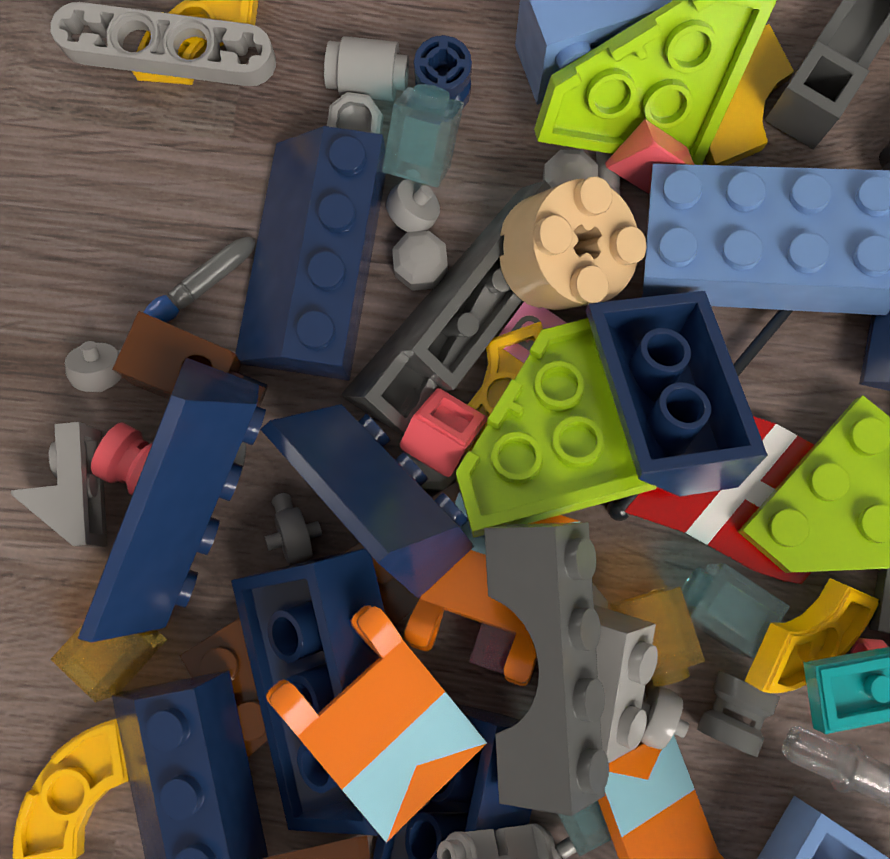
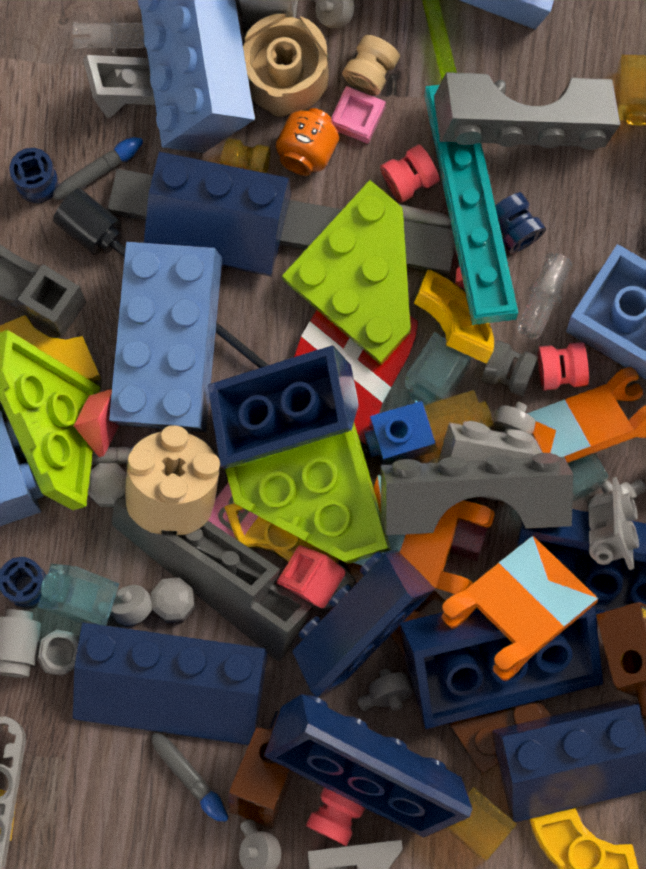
camera: 90 degrees left, 5 degrees down
(640, 554) = (400, 434): none -> blue brick
(743, 792) = (573, 366): none -> coral wheel

